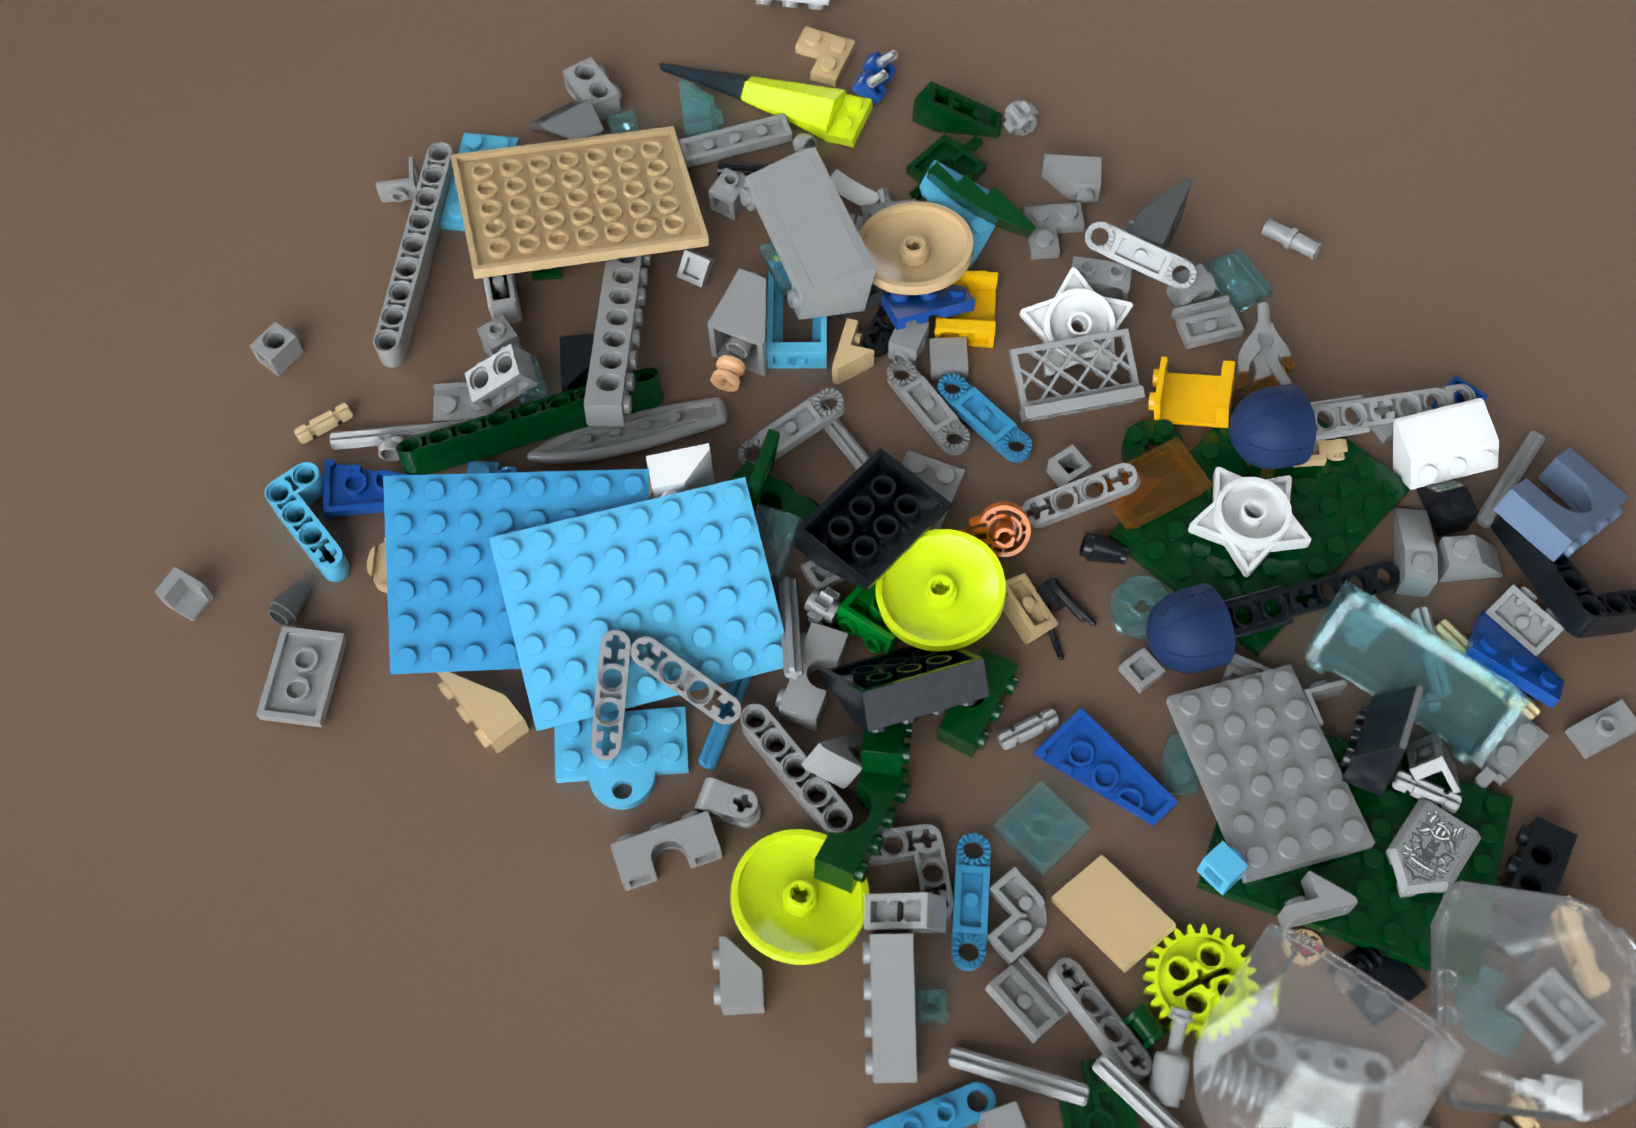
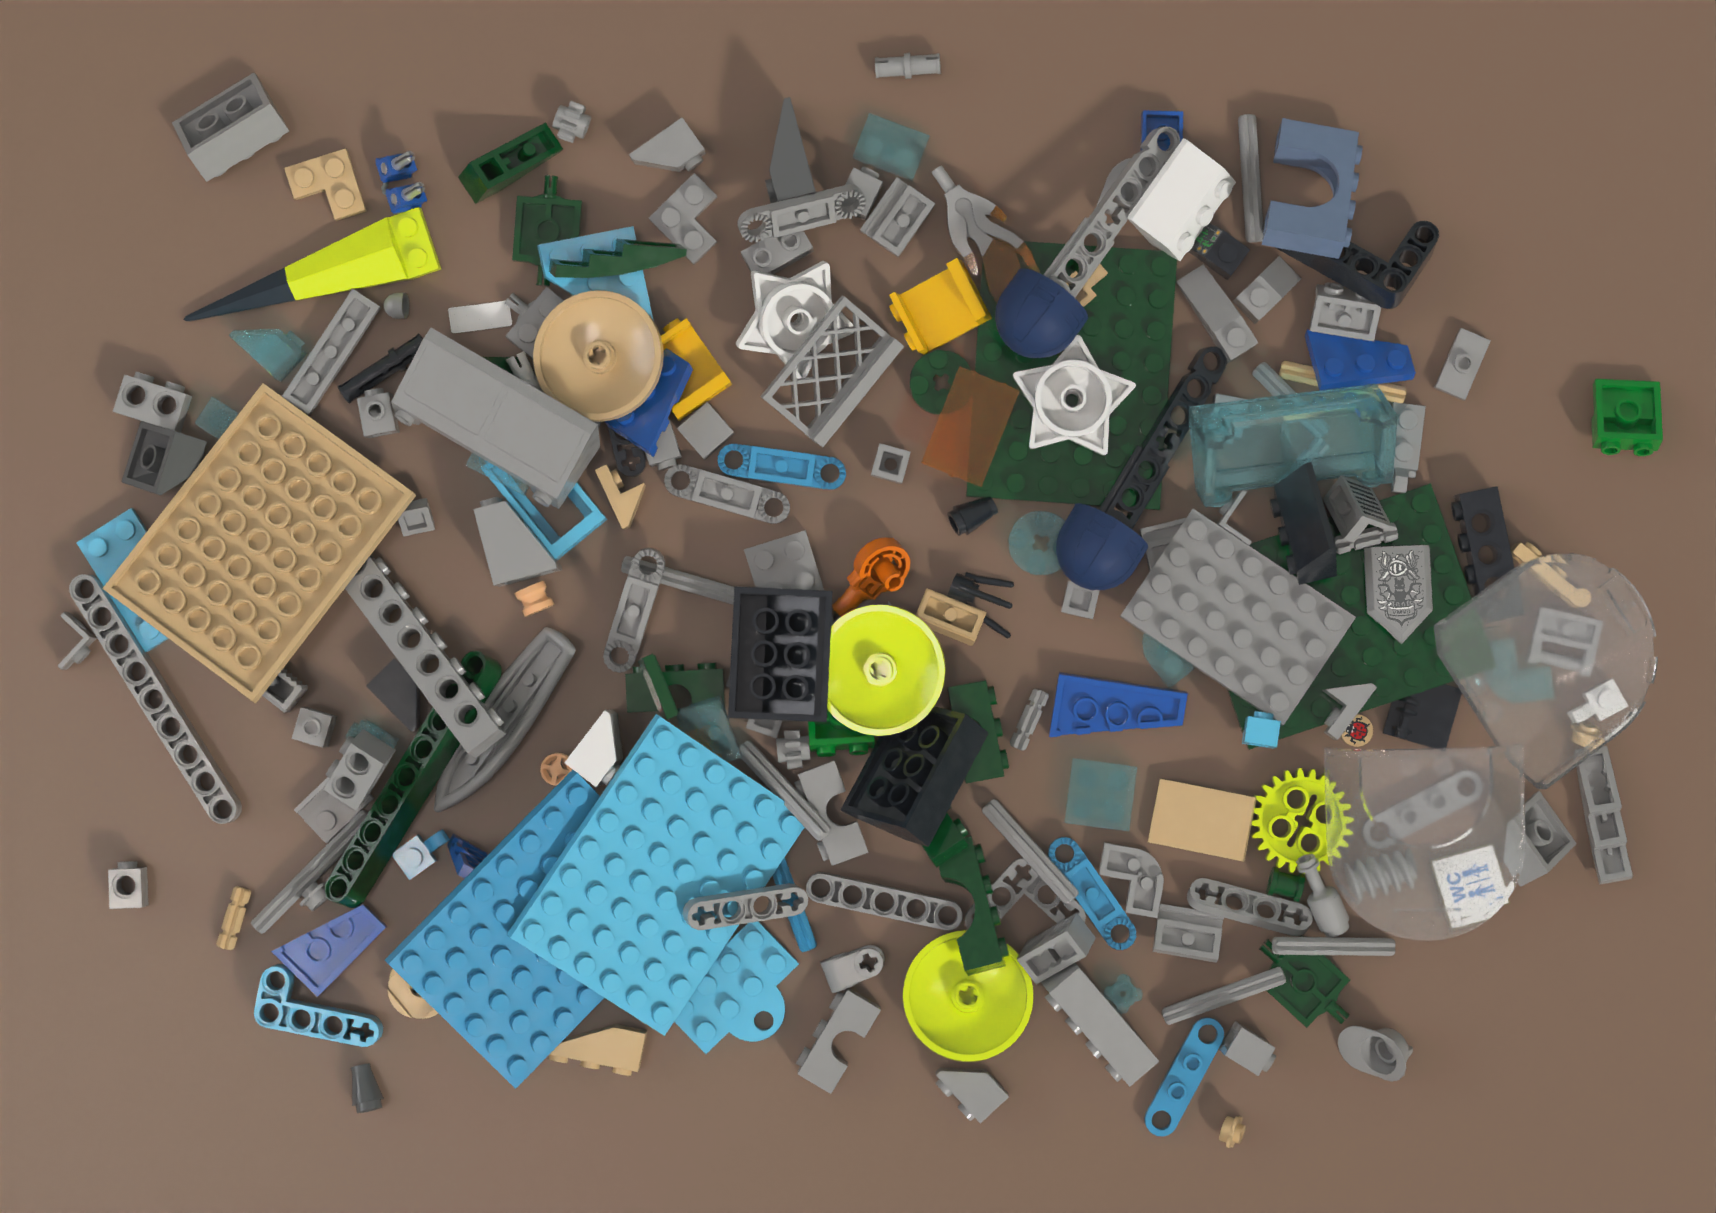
camera: 40 degrees left, 25 degrees up
(184, 594) = (274, 1152): light grey panel -> none
(302, 676) = (434, 1137): light grey plate -> none
(606, 694) = (700, 966): light grey beam -> none
(836, 759) = (912, 874): light grey slope -> none
(946, 826) = (1030, 851): none -> light grey axle
(1082, 501) = (922, 487): light grey beam -> none

